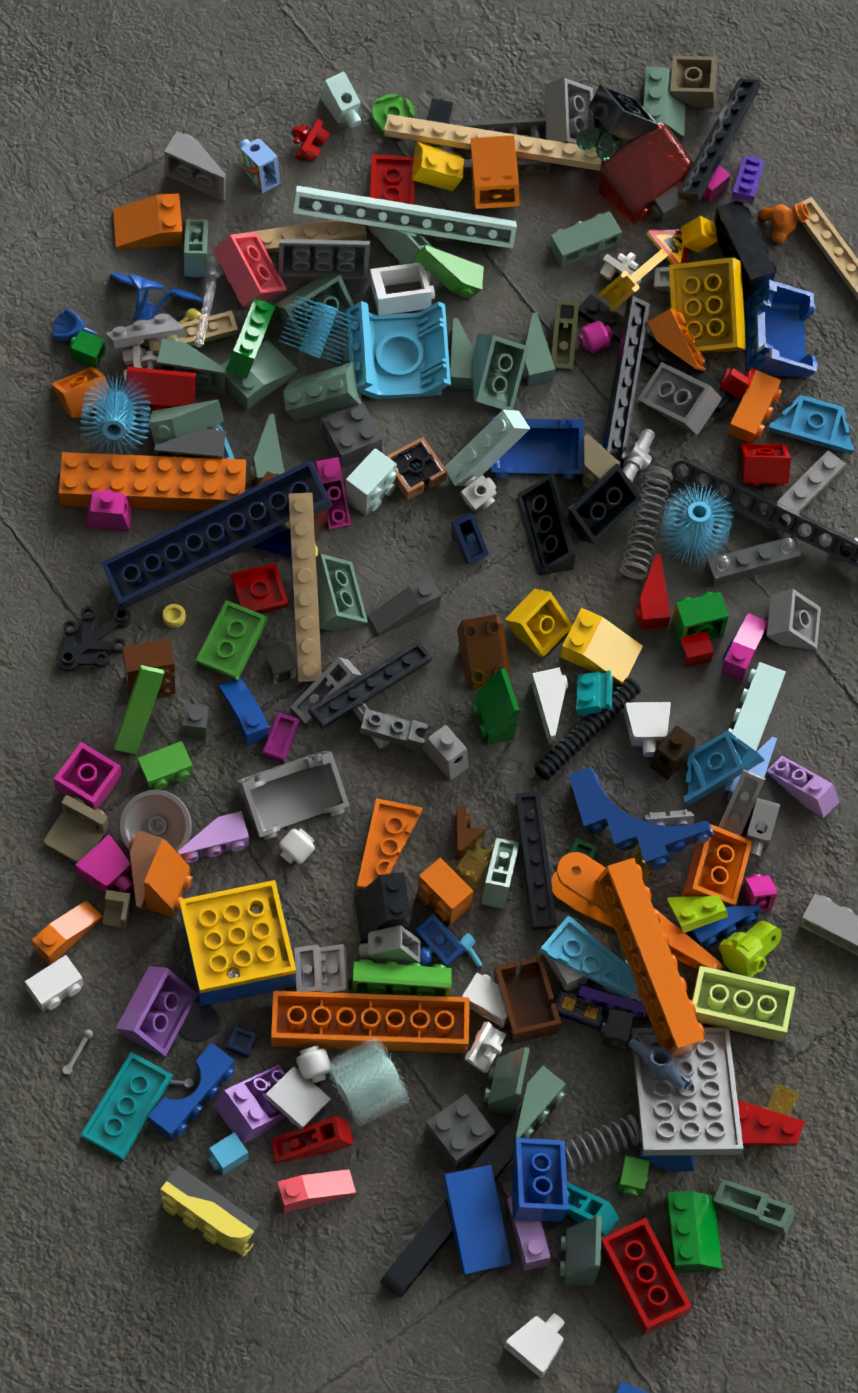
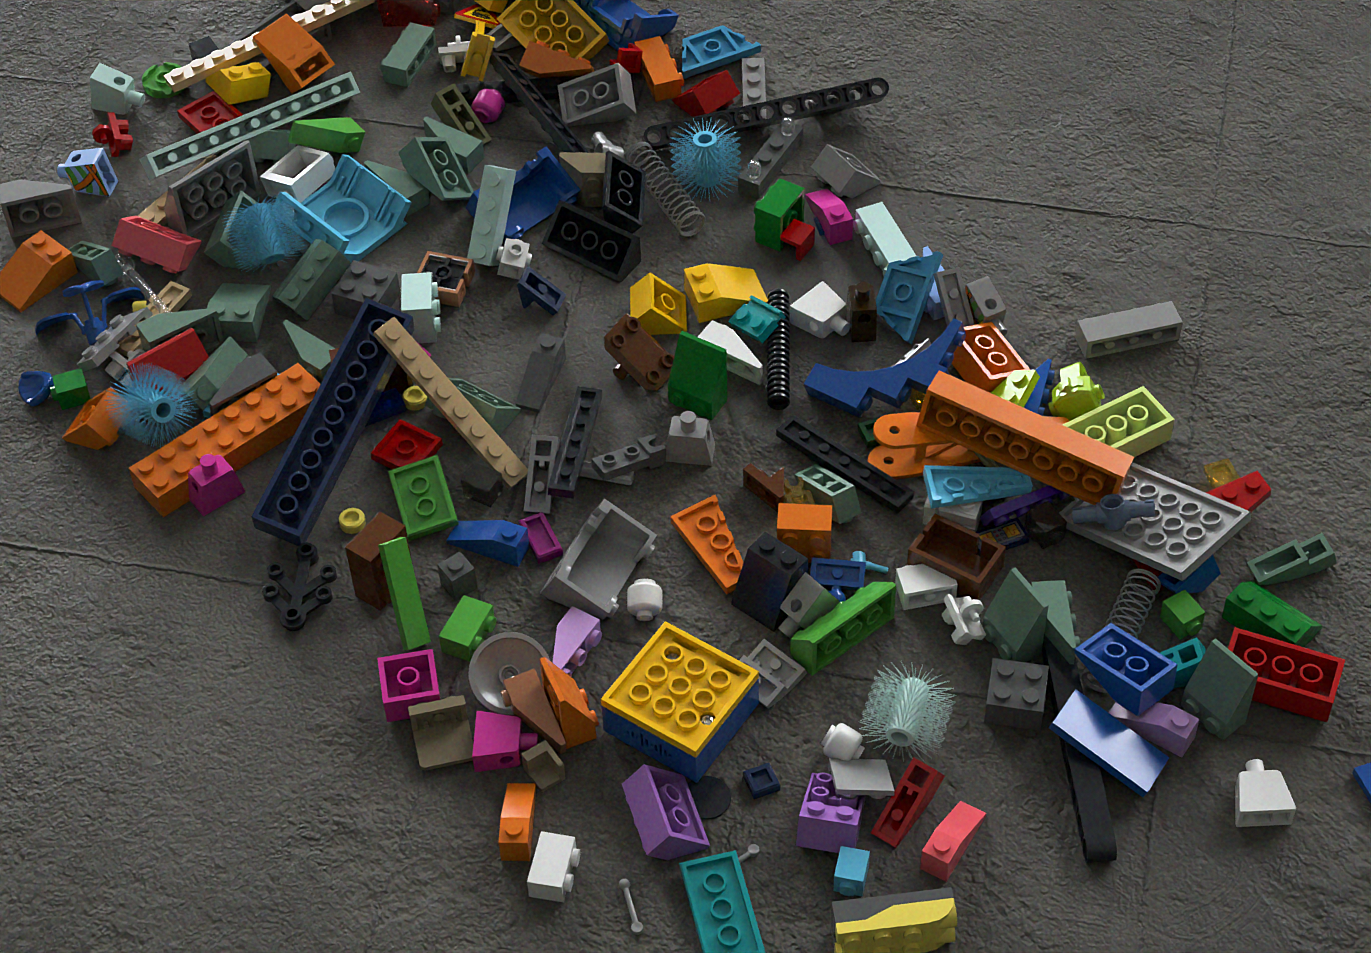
camera: 35 degrees left, 15 degrees down
(173, 1115) = (770, 880): blue arch -> none
(250, 338) = (211, 279): green brick -> none
(351, 1019) = (842, 678): orange brick -> none
(653, 604) = (728, 232): red slope -> none
(759, 891) = (1038, 348): dark pink slope -> none
(805, 786) = (995, 261): lavender slope -> none

